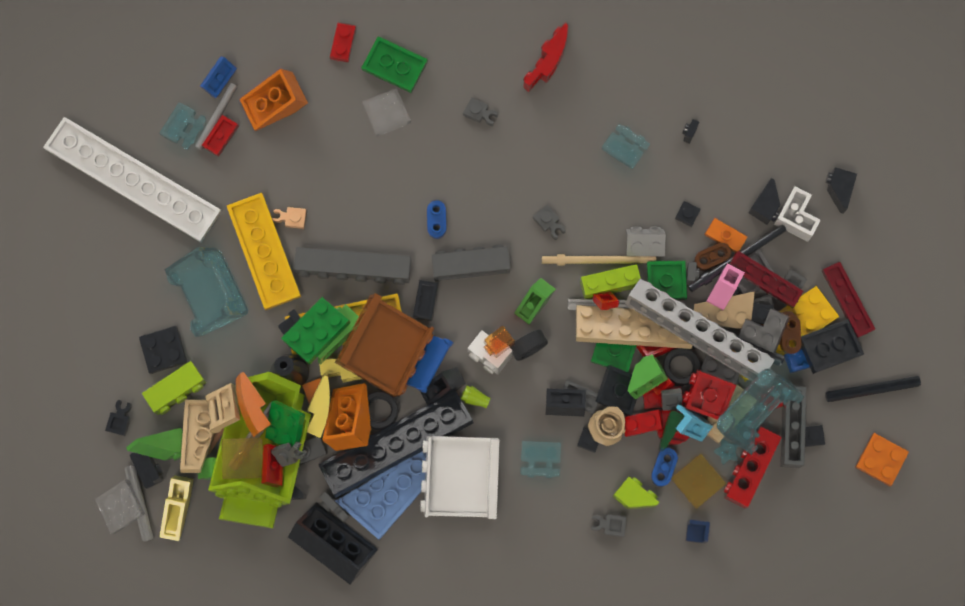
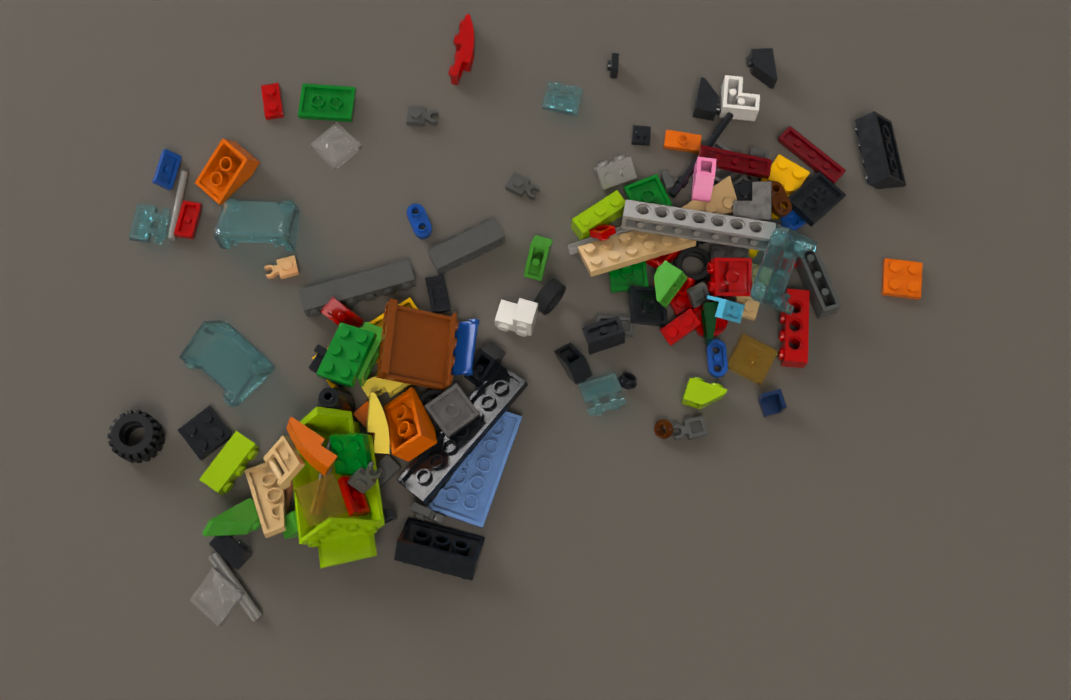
camera: 25 degrees left, 5 degrees down
(89, 319) = (125, 426): none -> black tyre
(118, 421) = (187, 516): black plate -> none
(132, 179) = (117, 288): white plate -> none
(176, 507) = (274, 576): light yellow slope -> none
(263, 251) = (269, 307): yellow plate -> none
(283, 165) = (257, 223): none -> clear light blue windscreen
(327, 287) = (339, 313): none -> red plate
(393, 420) = (452, 410): none -> flat silver plate
(460, 476) = (536, 438): white panel -> none
(474, 397) = (518, 362): lime cone -> none
(498, 342) = (523, 299): clear orange brick -> none
(525, 418) = (573, 363): none -> black slope
(561, 259) = (547, 214): tan bar -> none
(570, 455) = (627, 381): none -> black plate
(584, 514) = (659, 431): none -> reddish brown plate
(587, 442) = (639, 361): black plate -> none
(607, 425) = (650, 340): tan hat -> none
(711, 256) = (677, 163): reddish brown plate -> none
(731, 448) = (765, 329): clear light blue plate -> none
(814, 436) = (837, 280): black plate -> none
(871, 389) = (866, 222): black axle -> none
(919, 322) = (879, 151): none -> black slope

